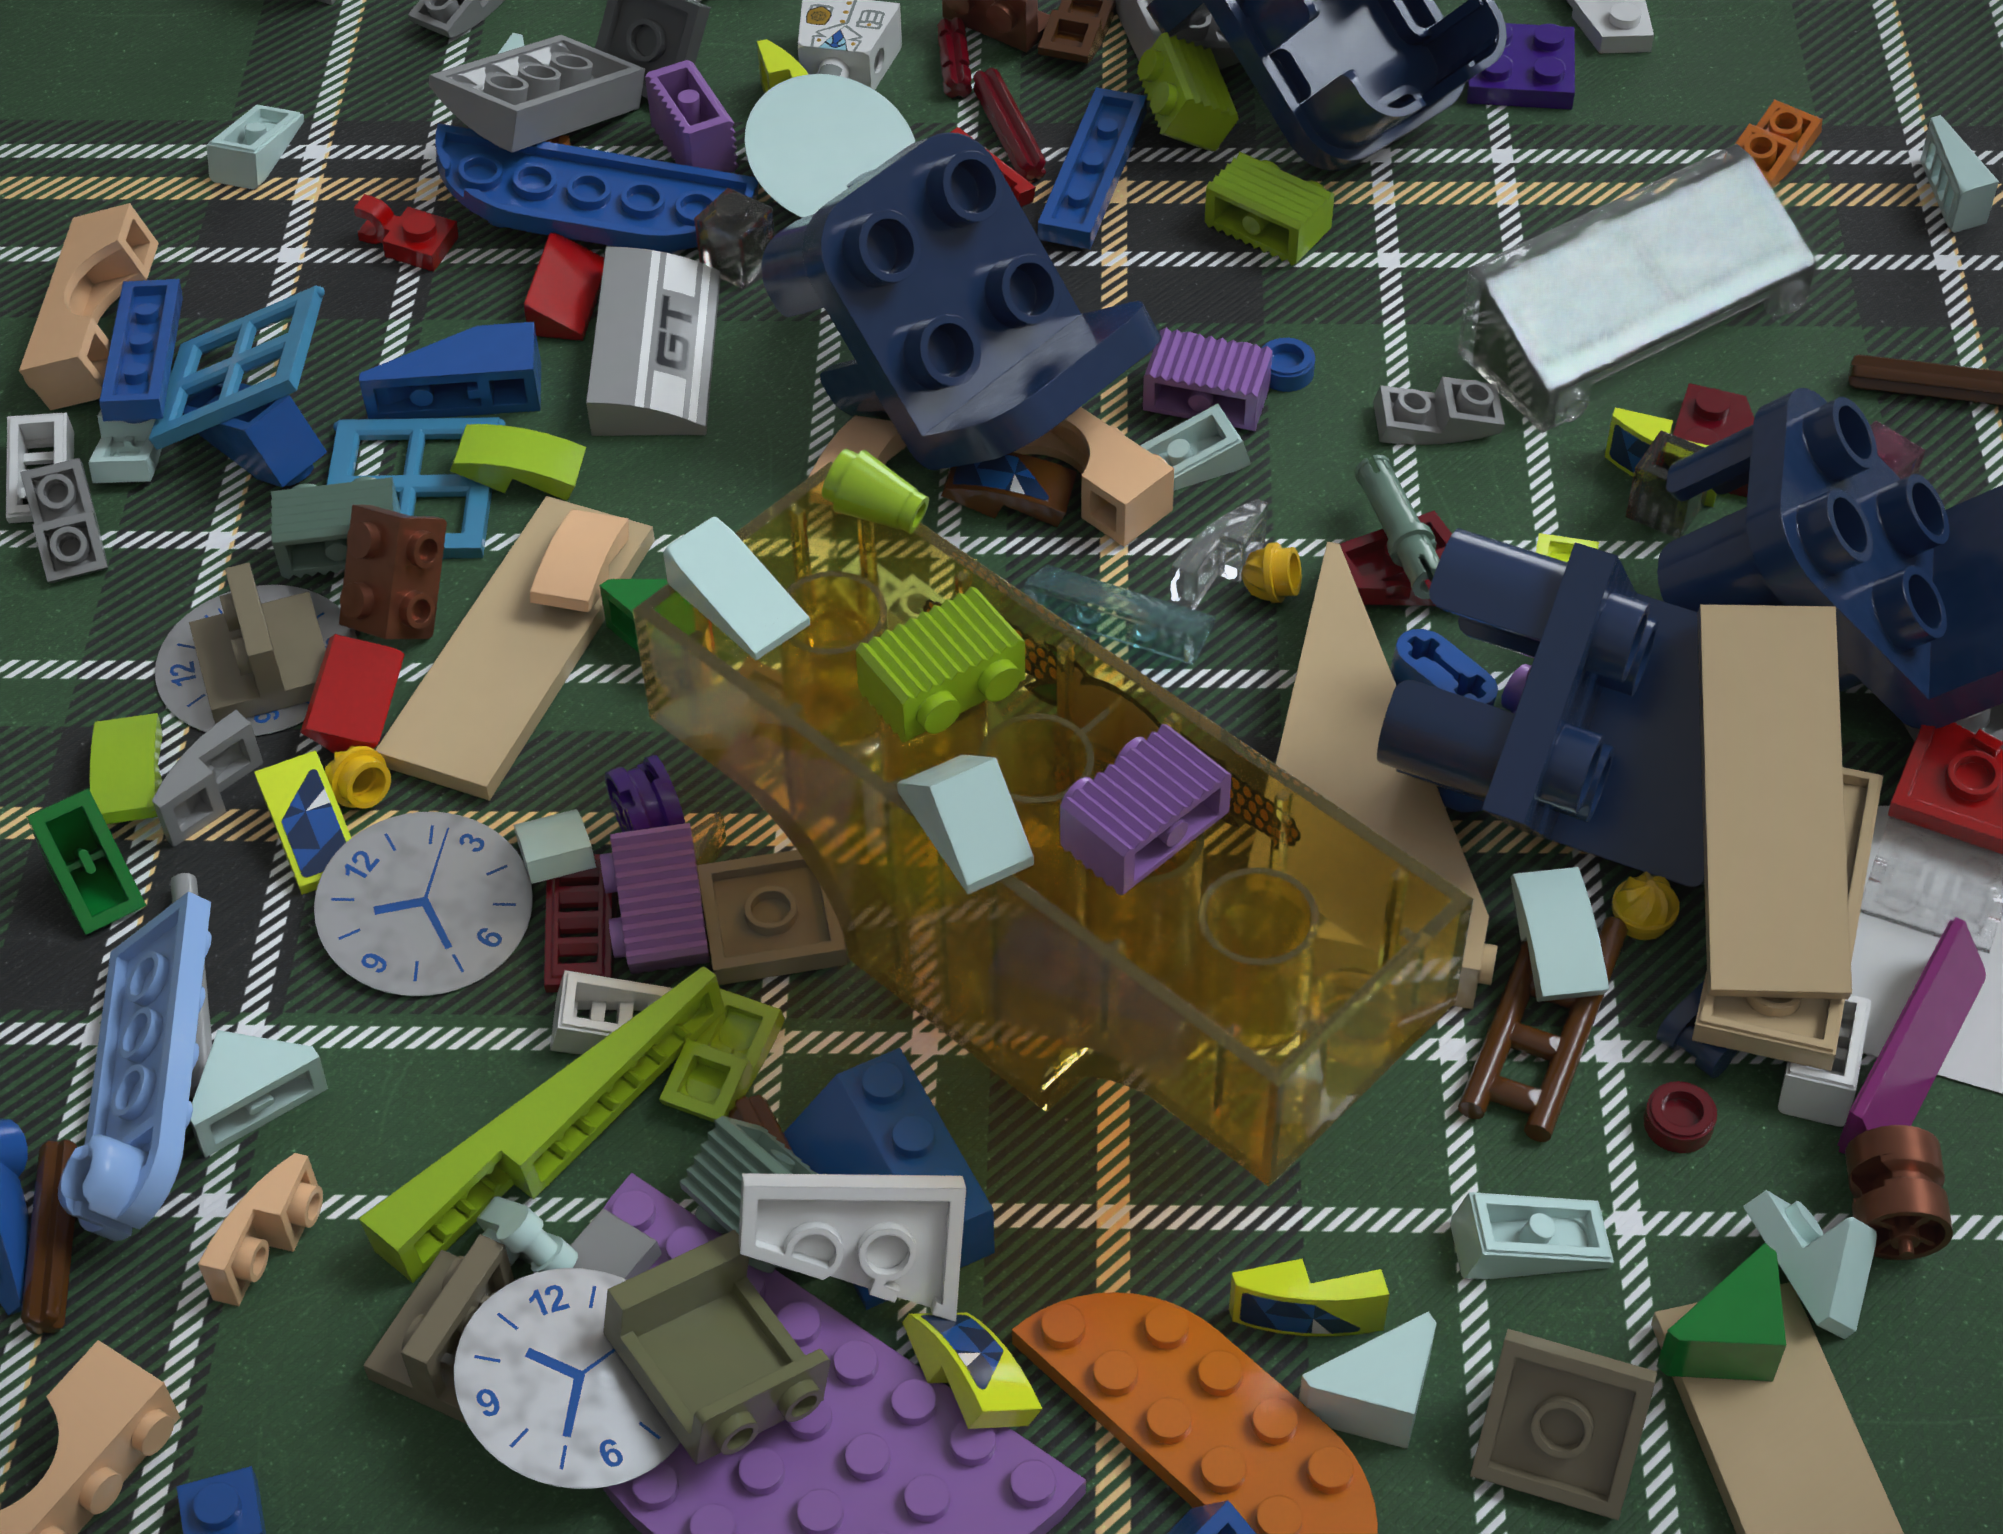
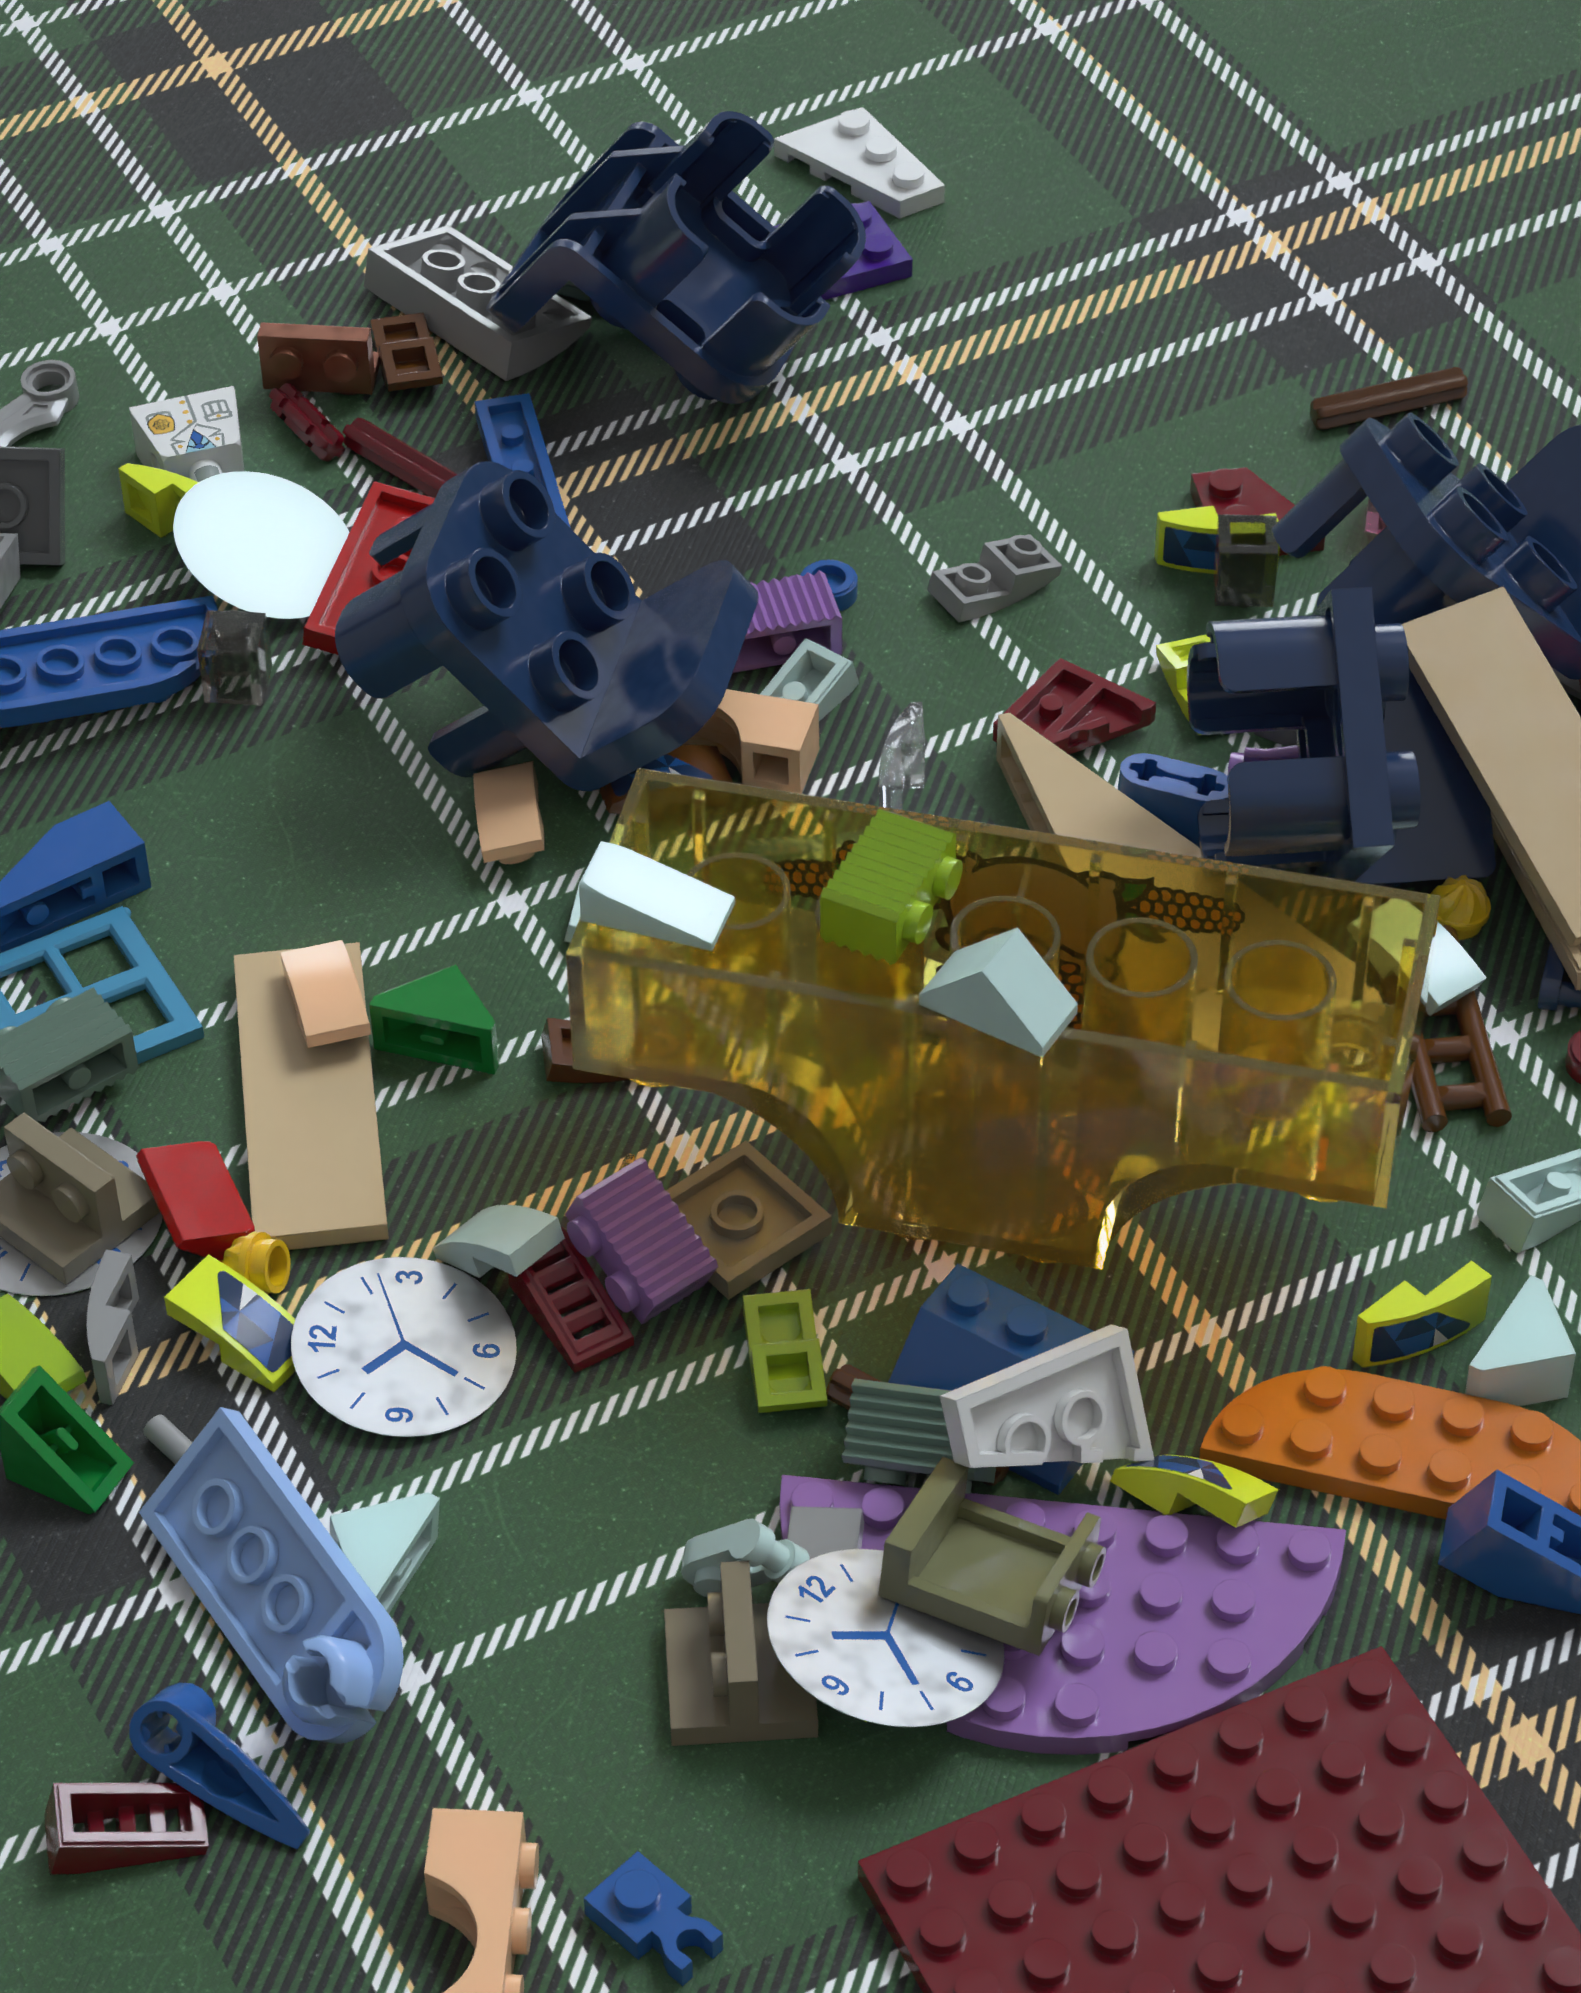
camera: 30 degrees left, 5 degrees down
(48, 1245) = (288, 1765): reddish brown axle -> none
(267, 1216) = (492, 1663): light nougat slope -> none
(392, 573) = (155, 1073): copper bracket -> none
(504, 453) = (168, 931): lime slope -> none
(539, 1132) = (680, 1483): lime slope -> none
(564, 289) = (93, 765): red slope -> none
(595, 994) = (634, 1386): white slope -> none
(643, 796) = (555, 1169): dark purple wheel -> none
(653, 345) = (221, 785): light grey slope -> none
(690, 118) = (106, 563): medium lavender brick -> none
(873, 492) = (712, 773): lime cone -> none
(1143, 807) = (1143, 928): medium lavender brick -> none
(1187, 92) = (568, 376): lime brick -> none
(1268, 207) = (716, 454): lime brick -> none
(1273, 573) = (955, 764): yellow plate -> none
(1409, 540) = (1065, 686): sand green pin -> none
(1630, 284) = (1094, 408): windscreen -> none
(1780, 139) = (1114, 245): orange slope -> none
(1957, 177) = (1309, 227): light aqua slope -> none

